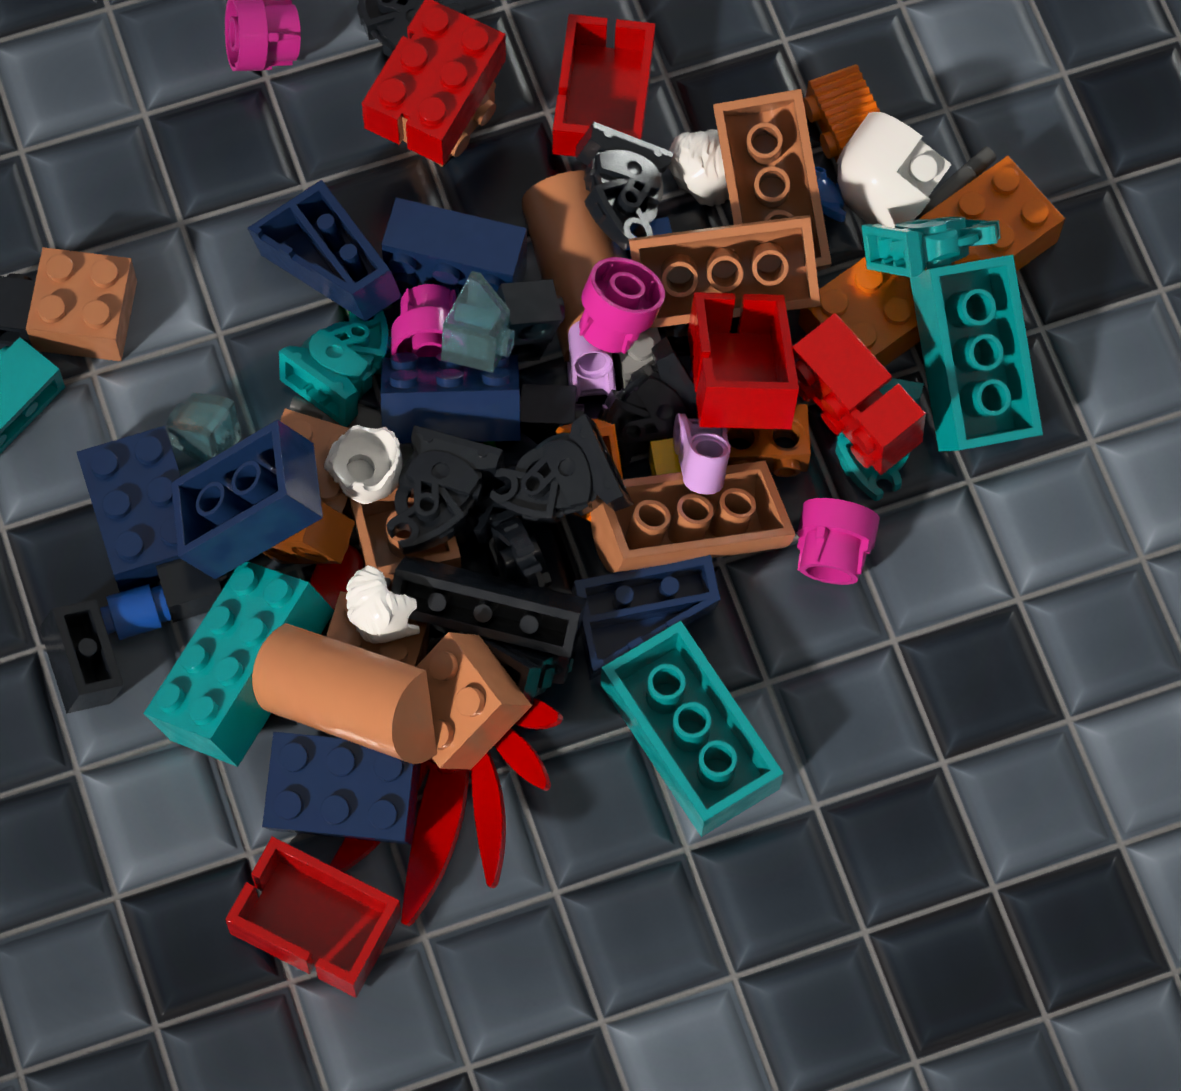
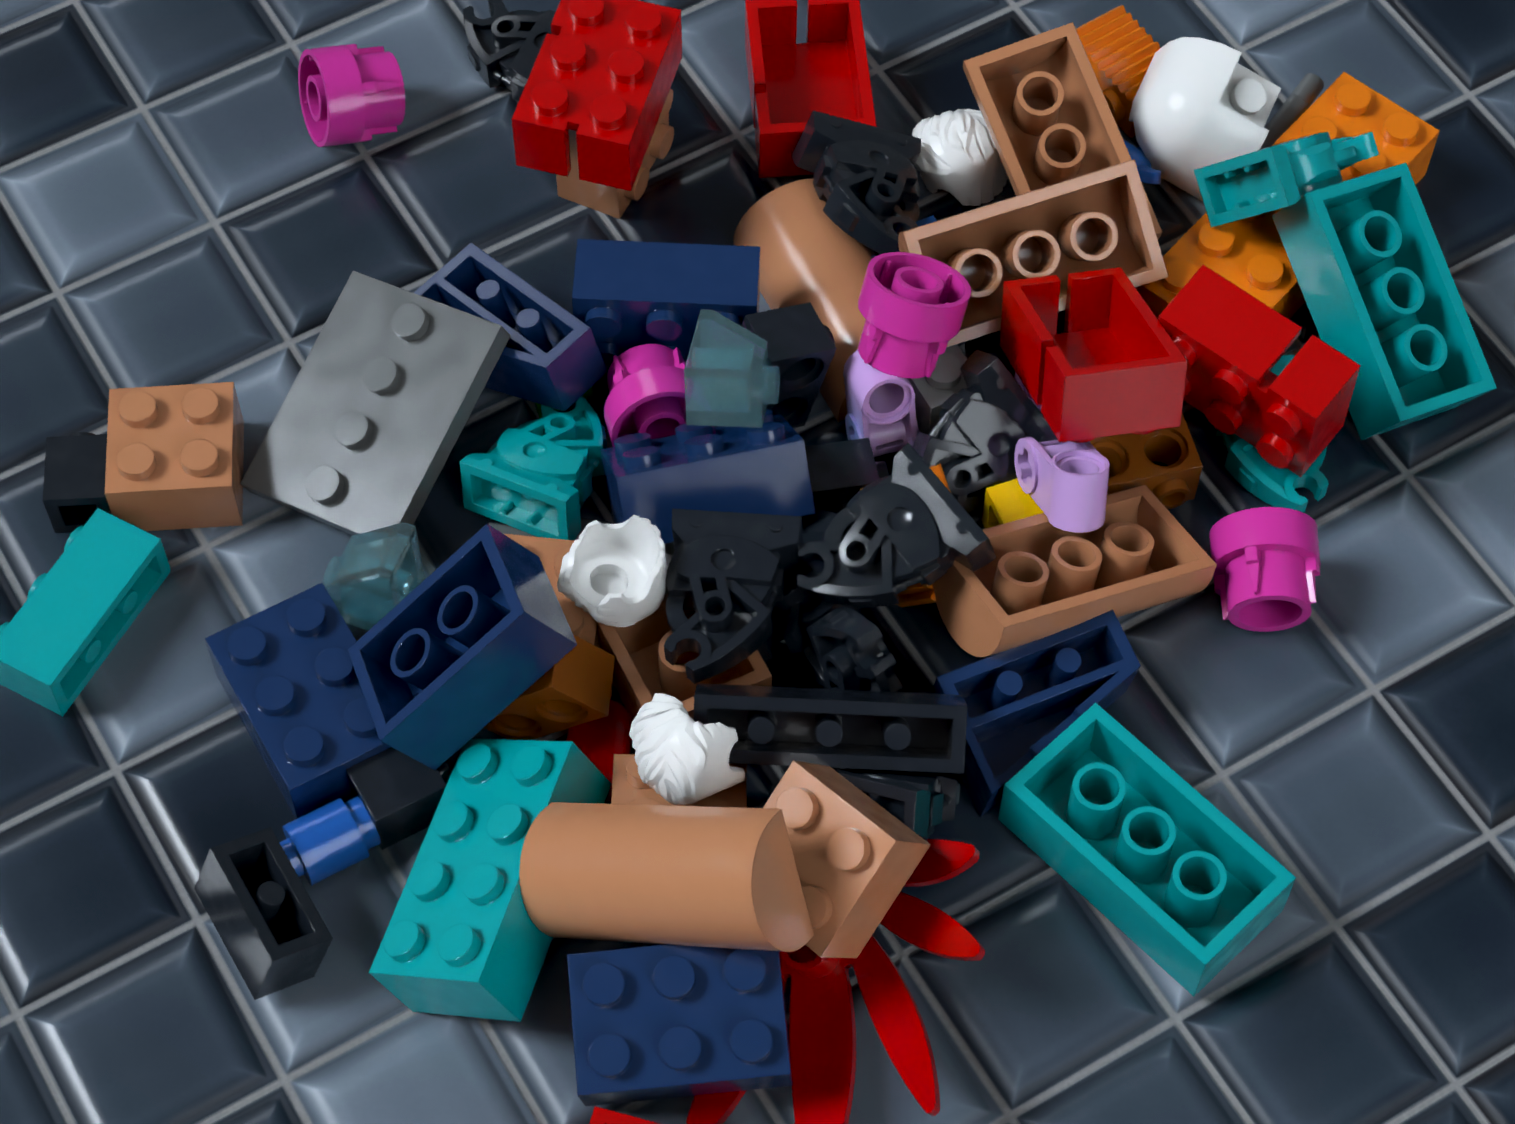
camera: 10 degrees left, 10 degrees down
(228, 297) = (375, 408): none -> plate

